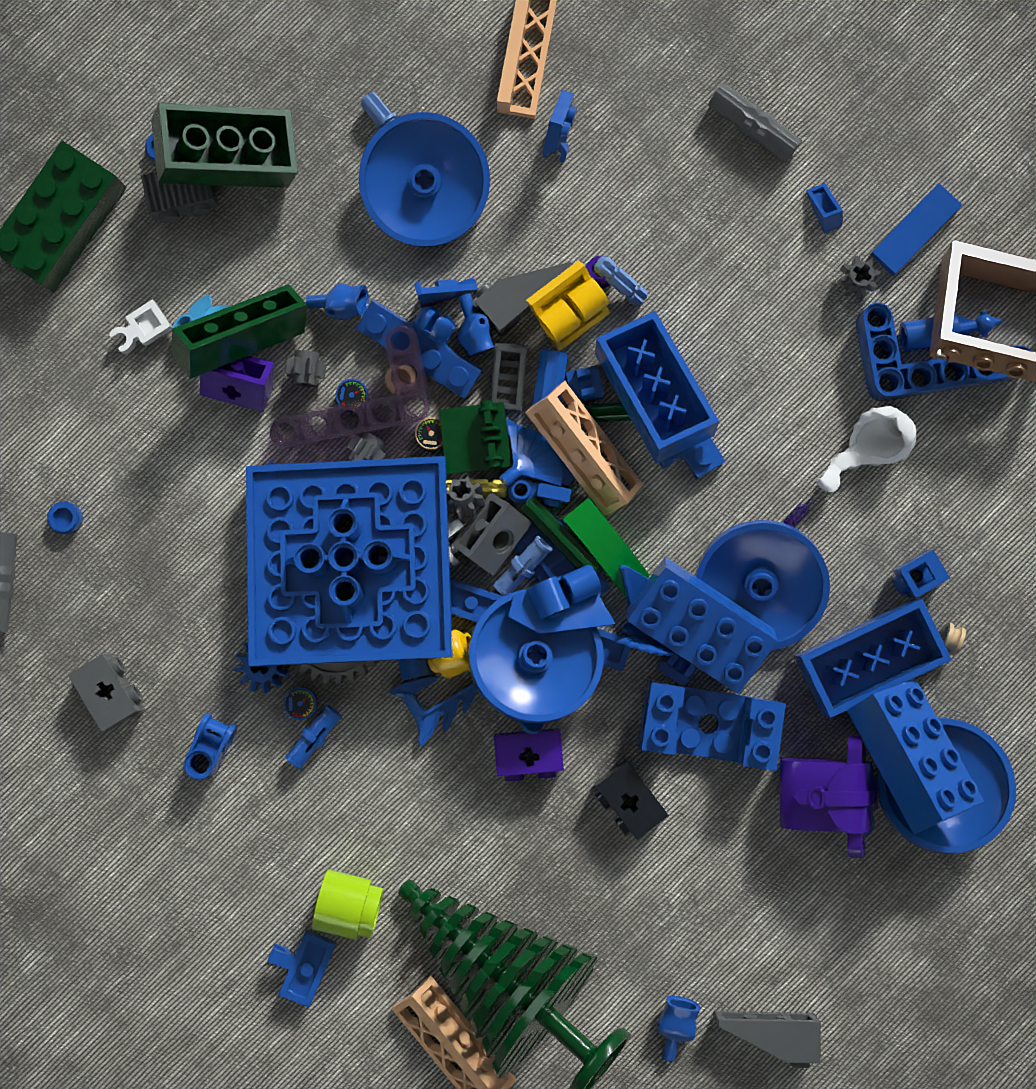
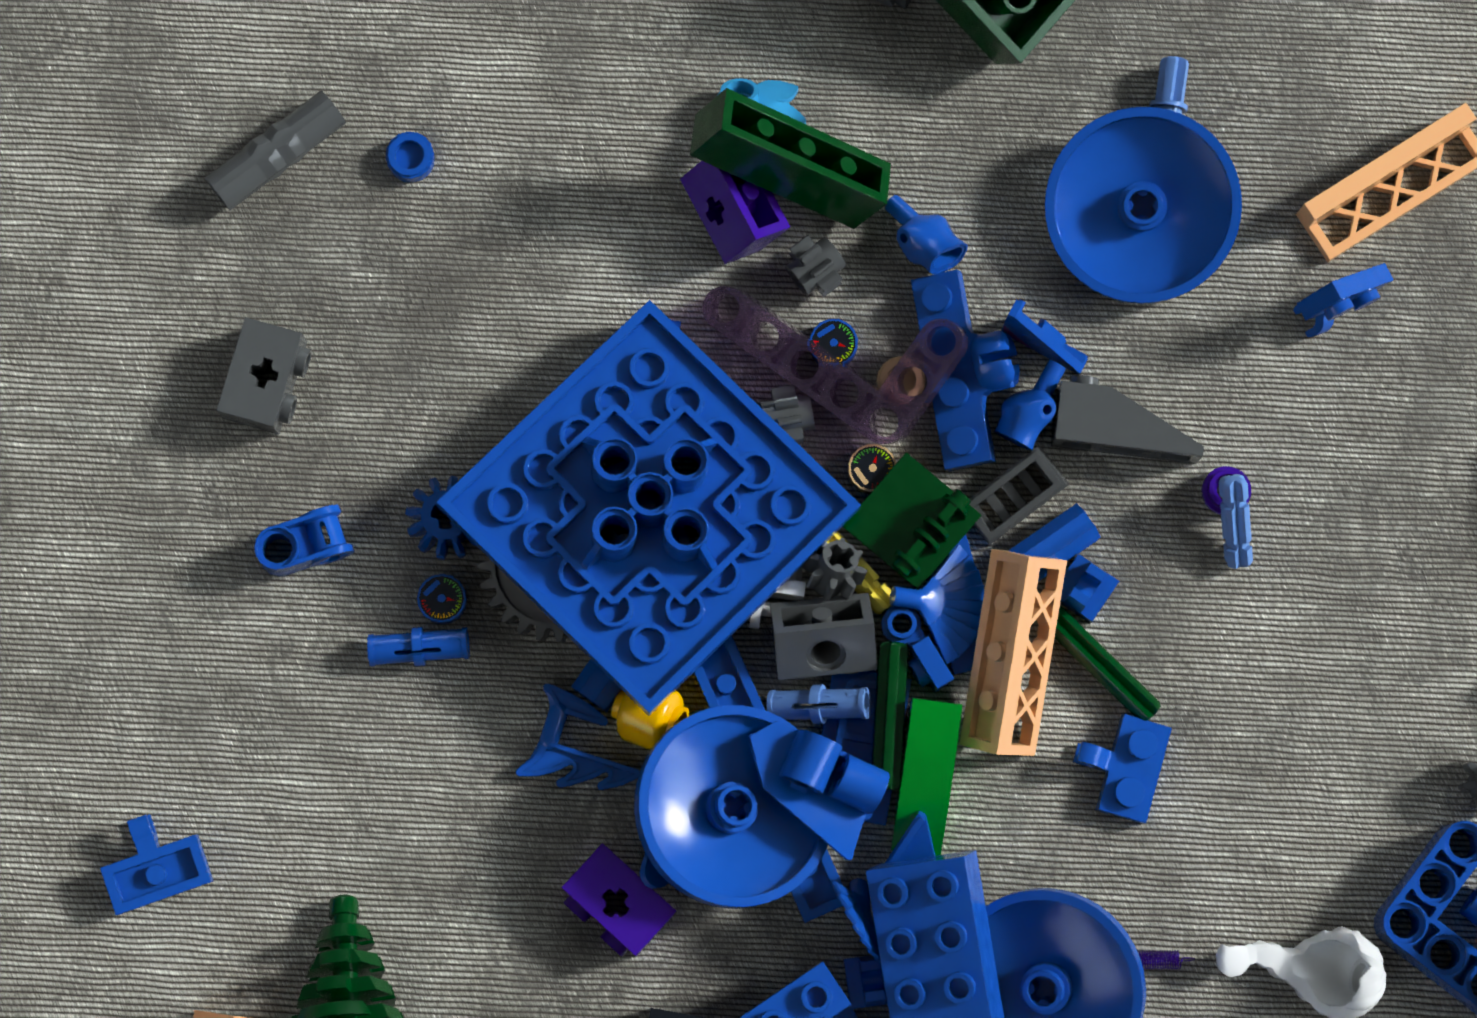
camera: 40 degrees right, 5 degrees down
(146, 325) = (702, 52): white plate -> none
(347, 906) = (267, 853): lime piece -> none
(569, 305) = (1154, 489): yellow plate -> none
(656, 387) = (1153, 667): blue brick -> none

